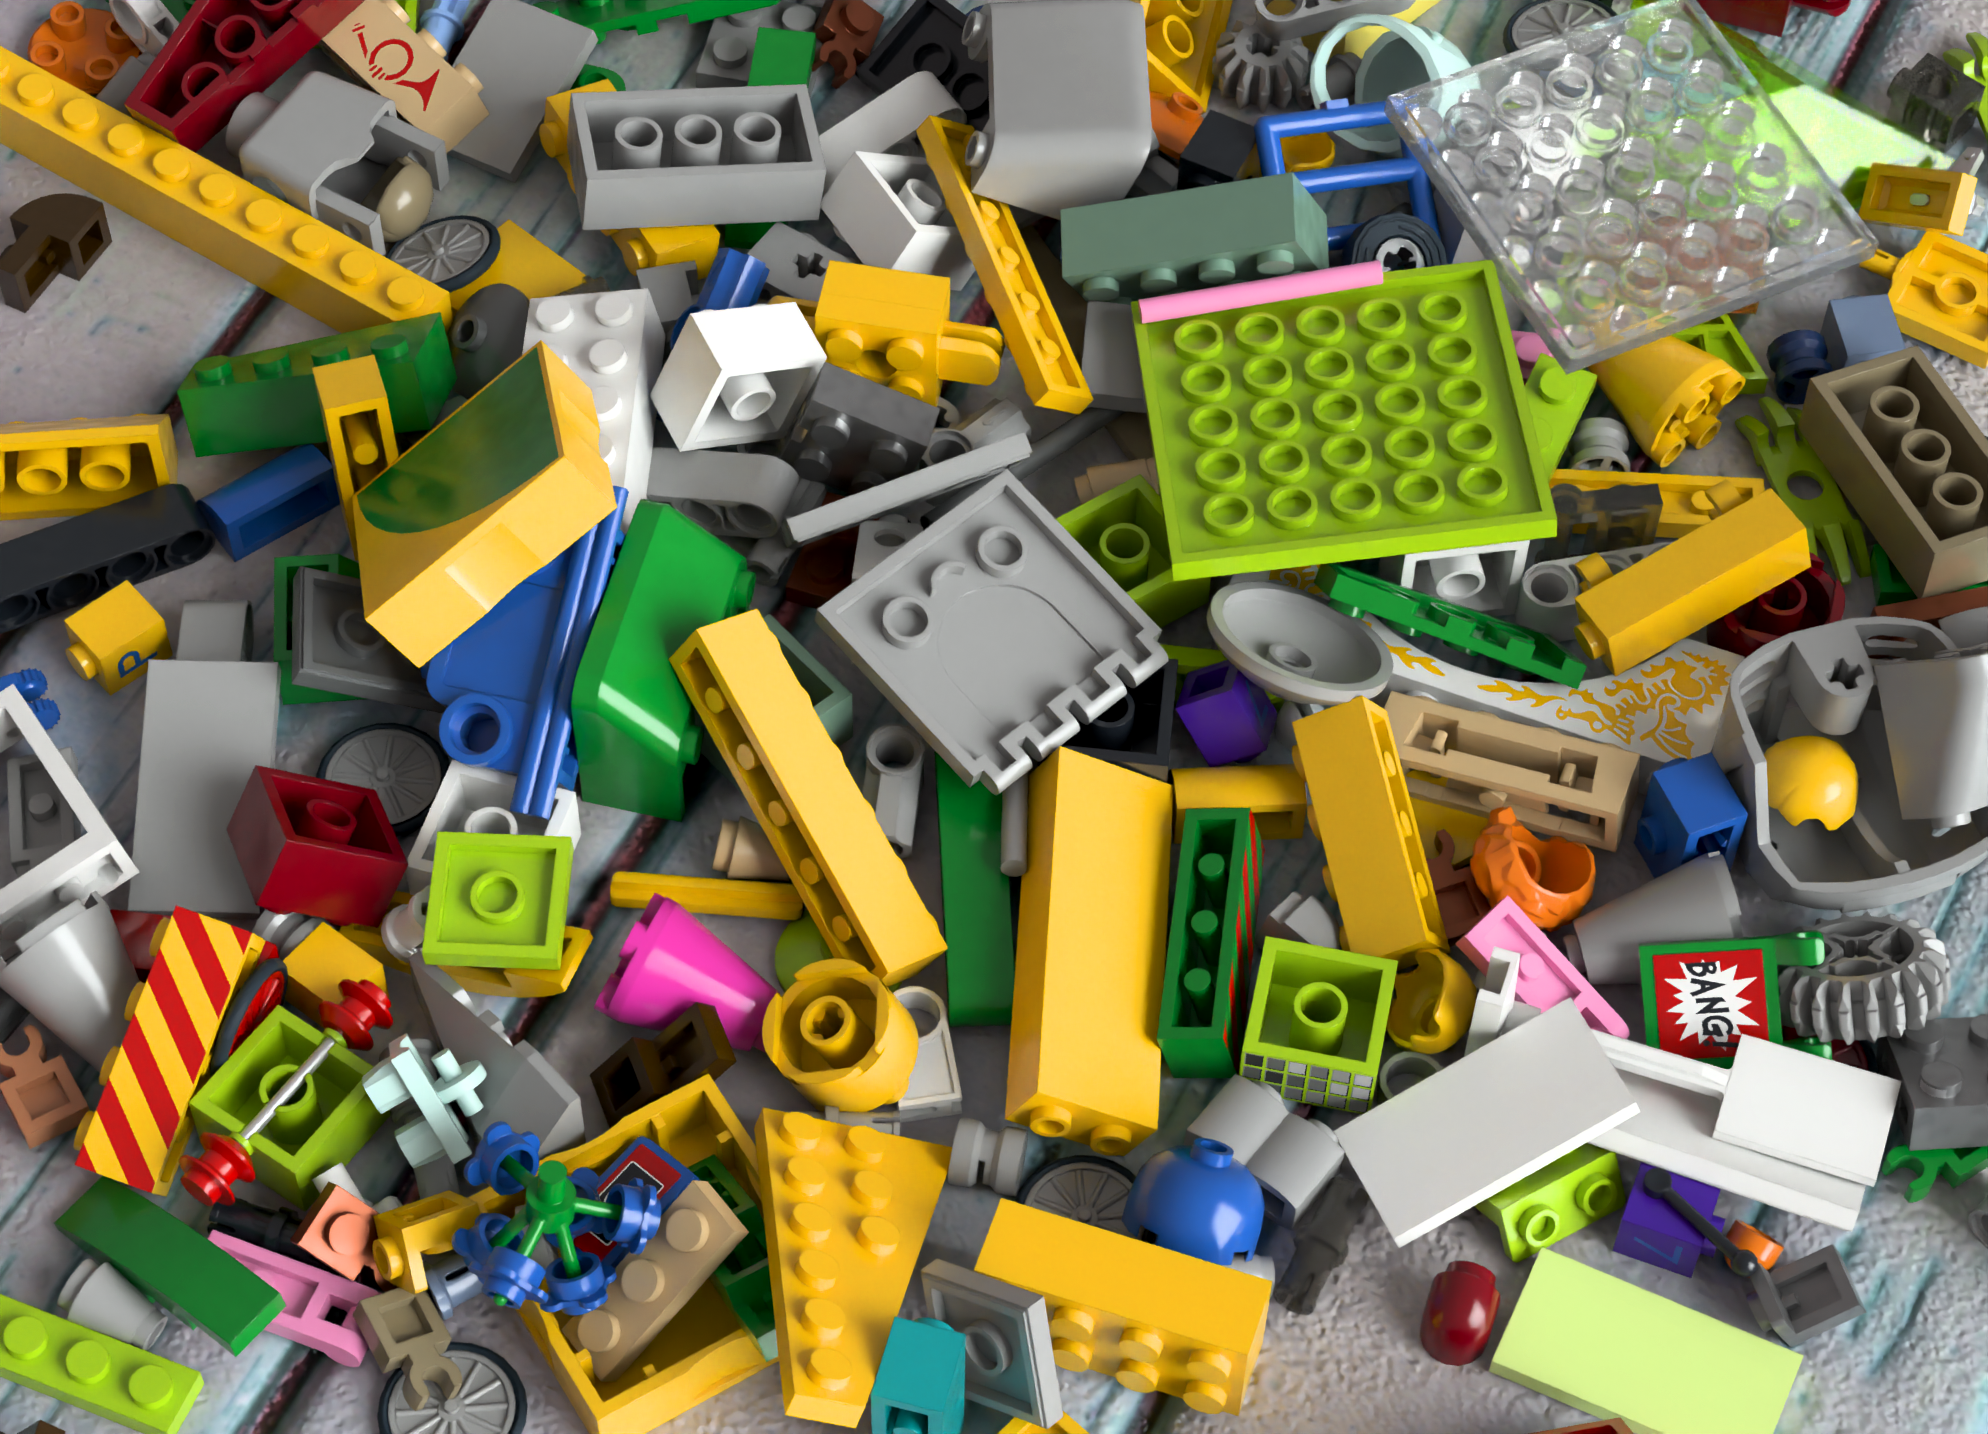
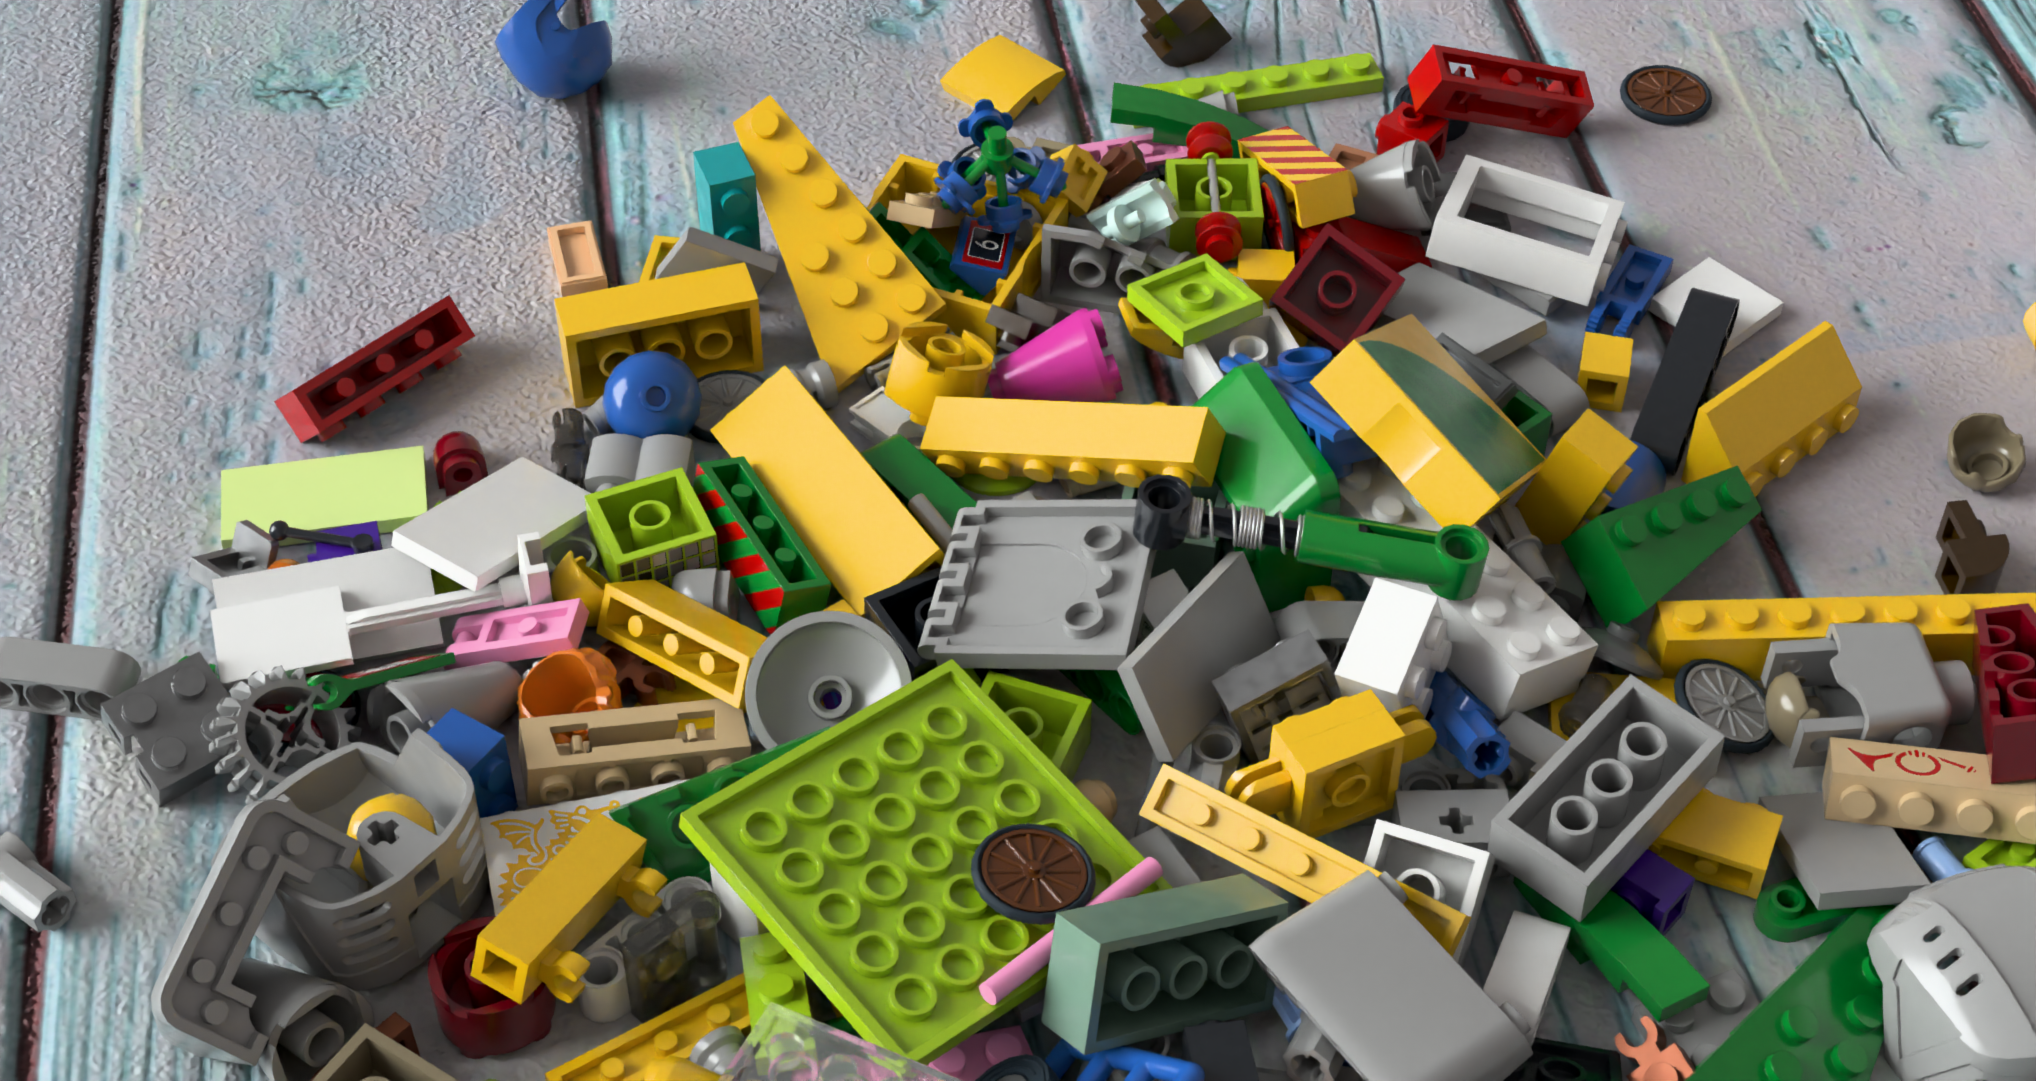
camera: 145 degrees right, 10 degrees down
(630, 383) = (1444, 560): none -> piece
(1260, 341) = (1032, 873): none -> reddish brown wheel

